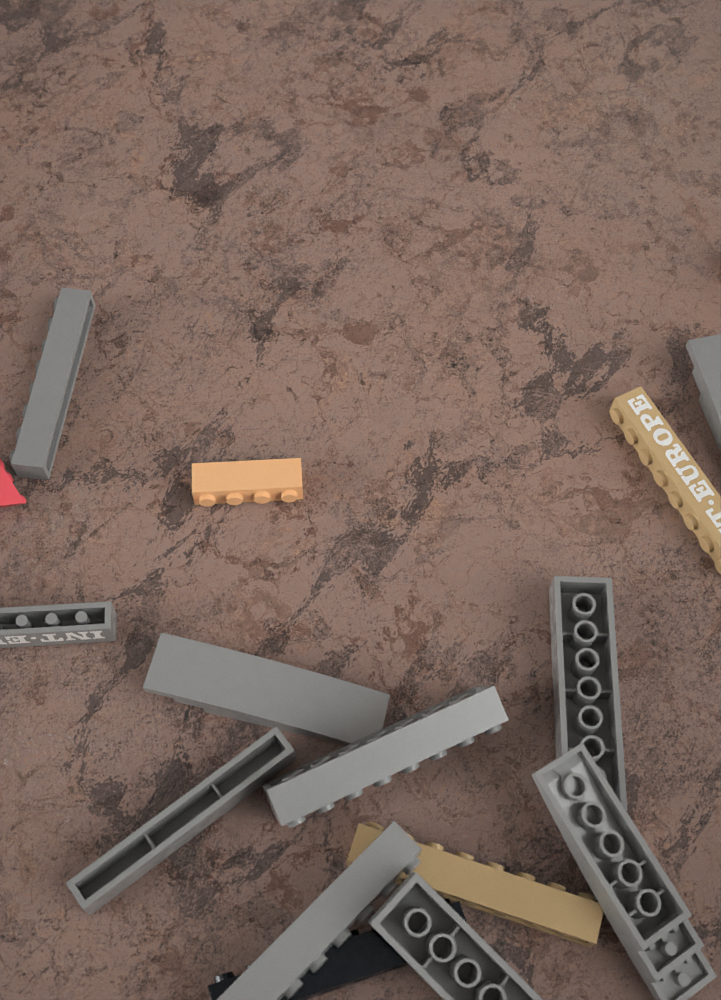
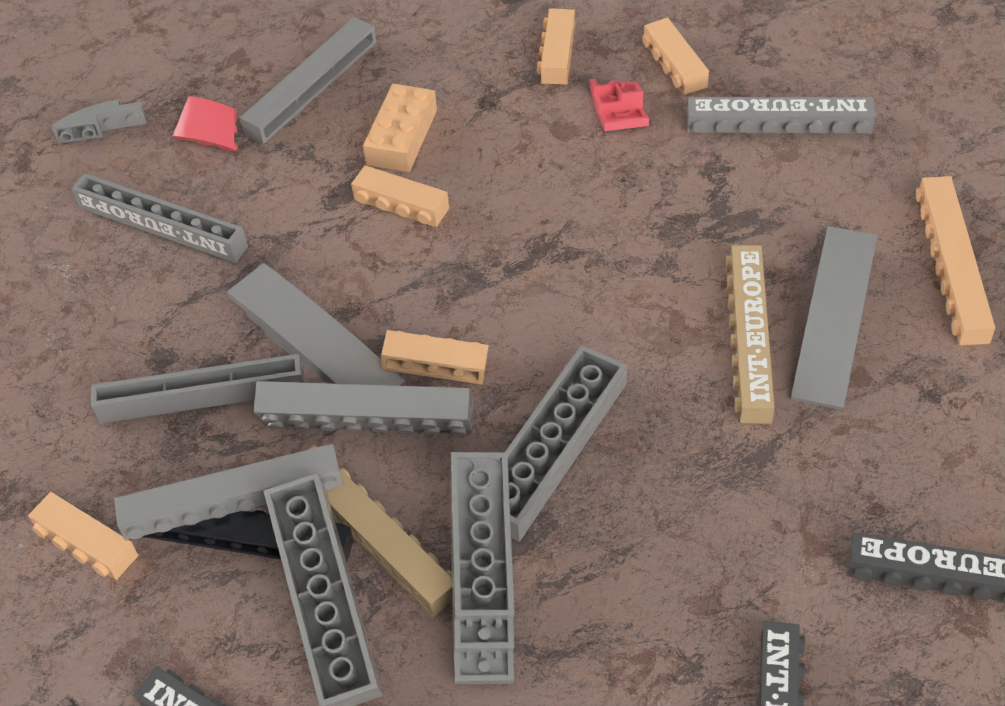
camera: 35 degrees right, 10 degrees down
(196, 400) = (400, 128): none -> light nougat brick
(297, 239) = (557, 46): none -> light nougat brick
(398, 282) = (619, 104): none -> coral slope
(409, 655) = (434, 357): none -> light nougat brick
(421, 206) = (675, 56): none -> light nougat brick
(558, 235) = (780, 115): none -> light grey brick

